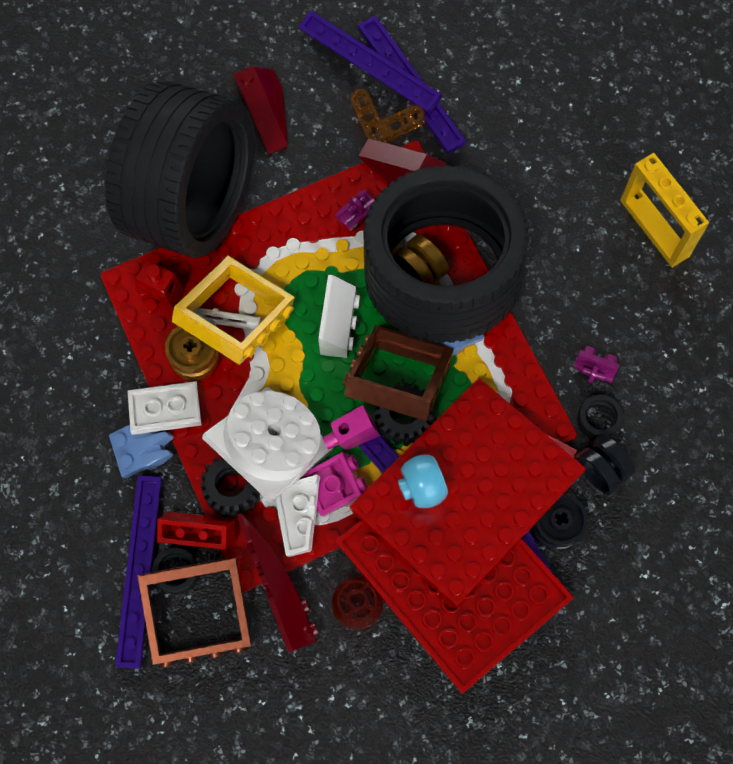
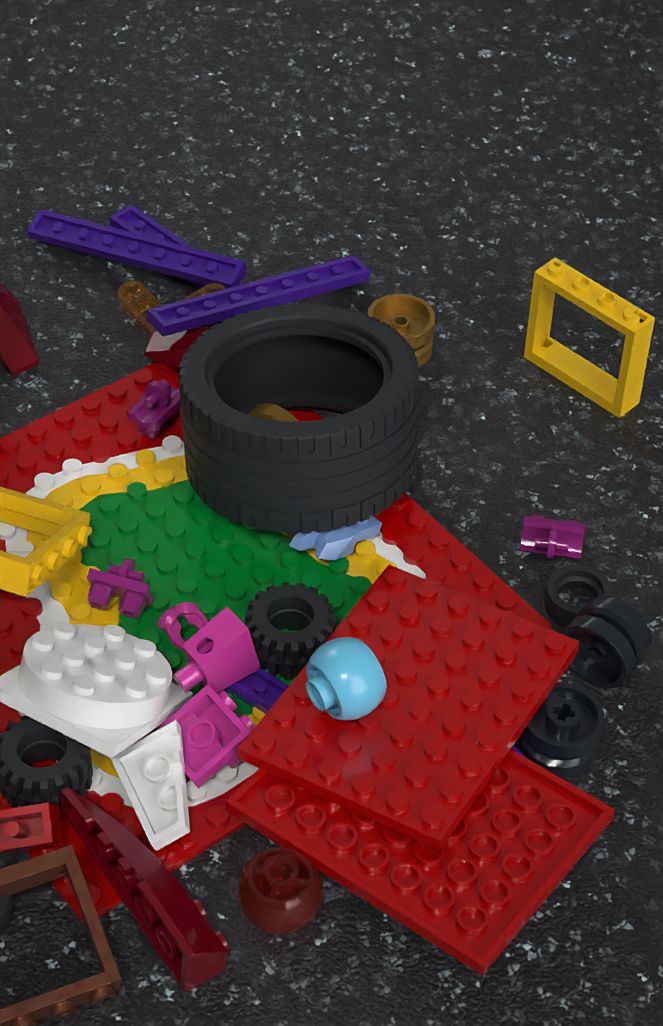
camera: 15 degrees left, 25 degrees down
(311, 364) = (122, 583): none -> magenta hips
(330, 388) = (170, 623): none -> dark pink piece
(338, 318) = (162, 530): white slope -> none
(391, 398) = (269, 568): copper window -> none
(445, 122) = (265, 292): none -> dark purple plate
(536, 170) = (411, 318): none -> pearl gold wheel

